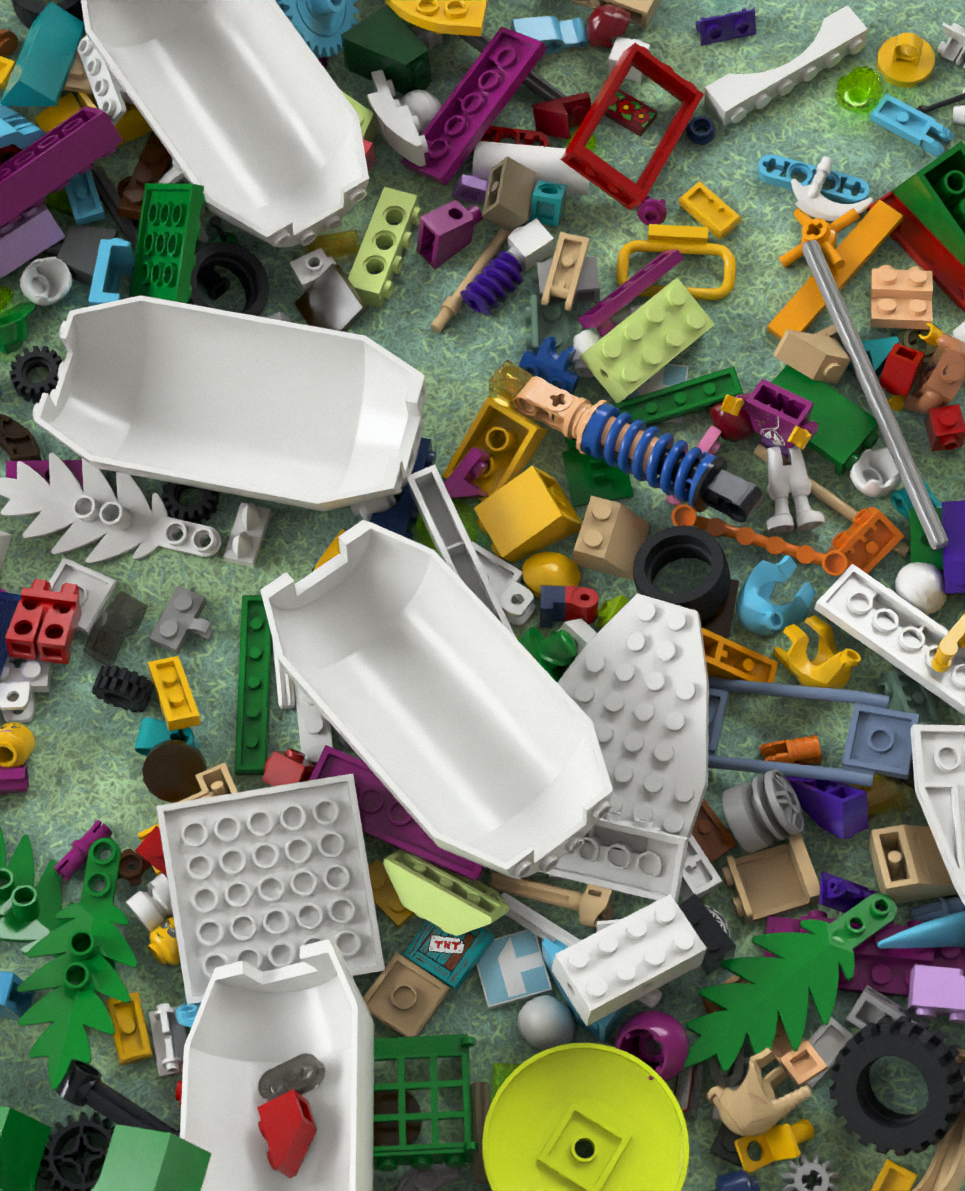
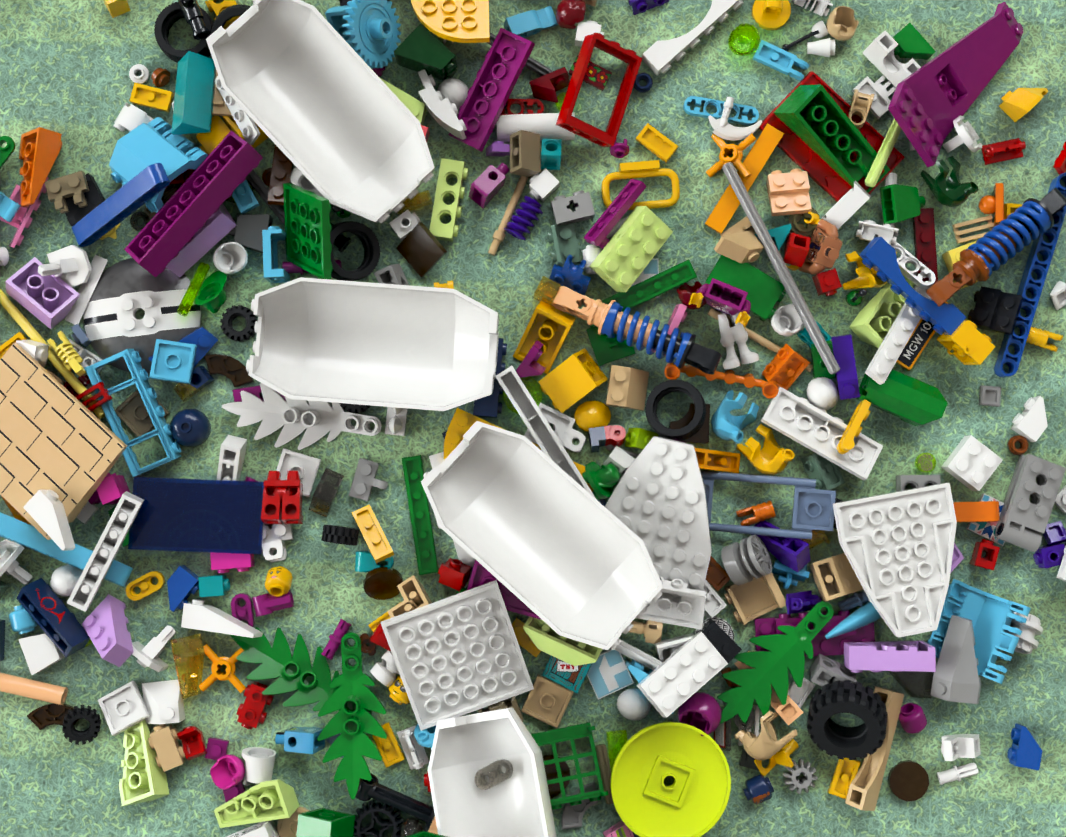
camera: 15 degrees left, 20 degrees up
(288, 1131) = (498, 808): red slope -> none
(566, 269) = (572, 206): tan hinge -> none
(835, 851) = (788, 575): none -> dark azure hips

